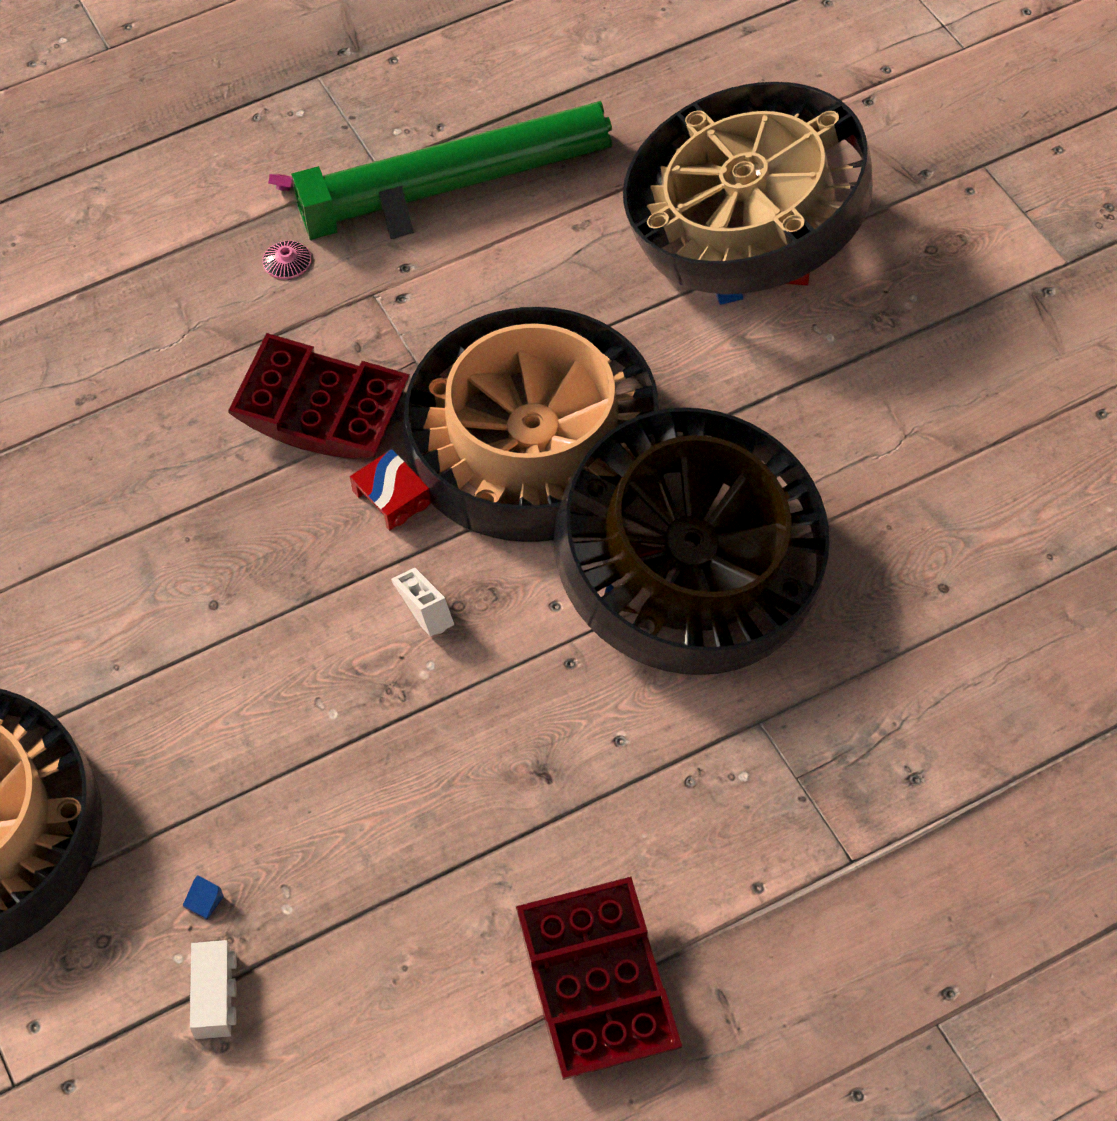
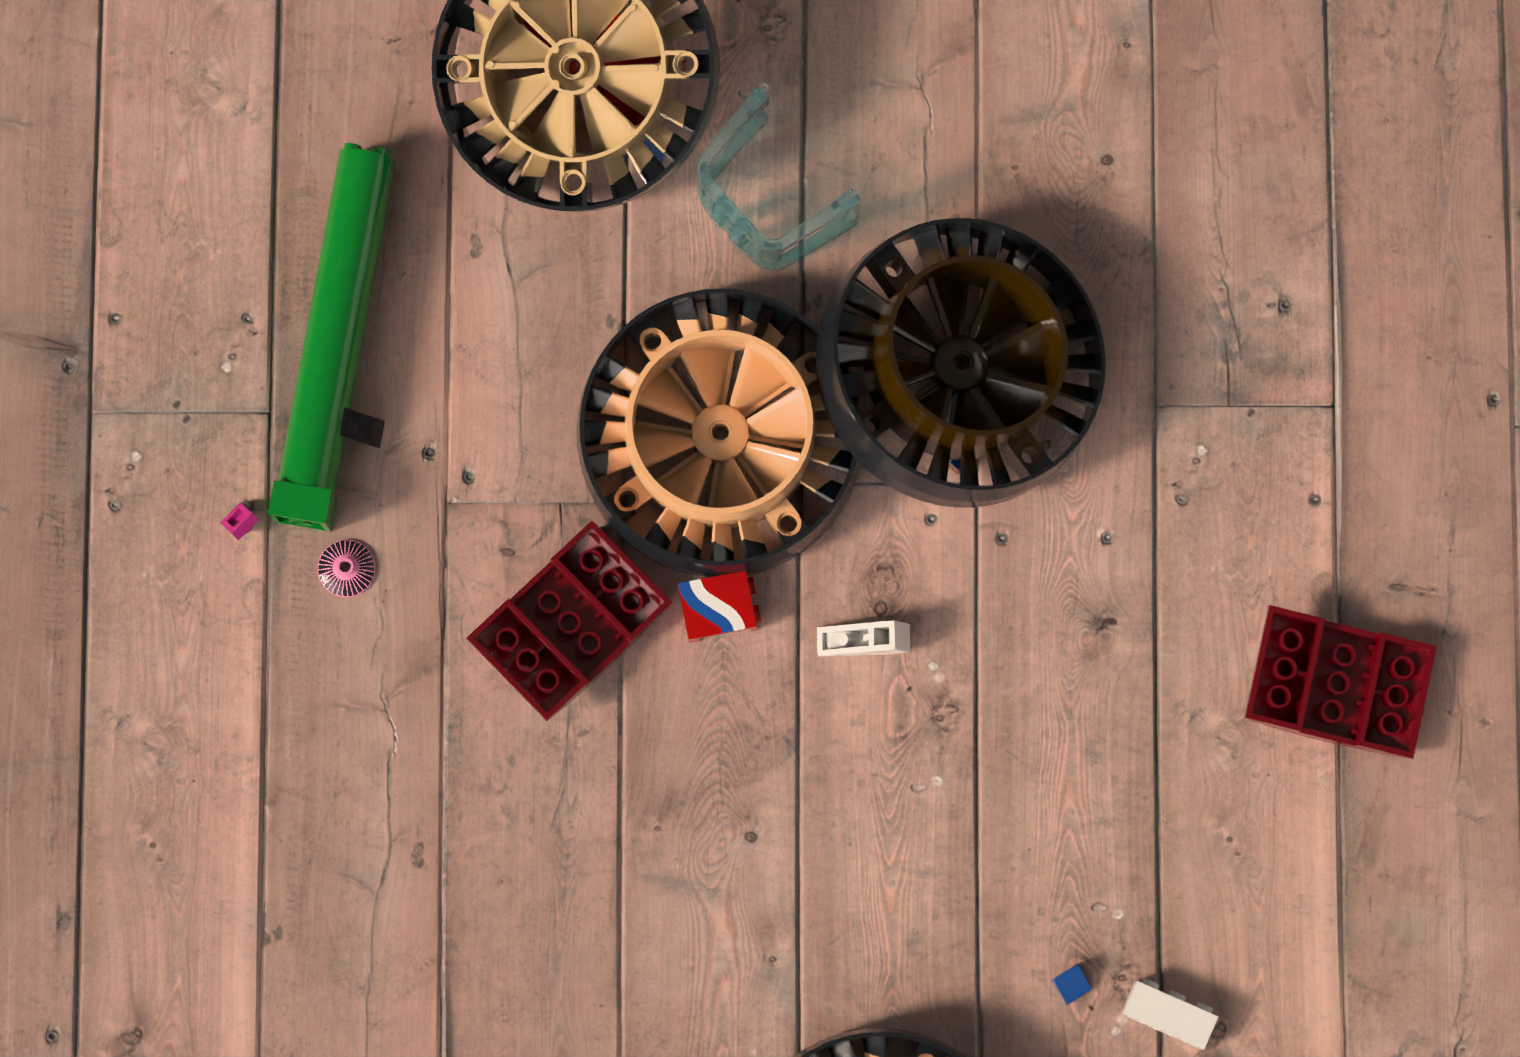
camera: 65 degrees left, 25 degrees up
(710, 332) = (746, 123): none -> clear light blue windscreen

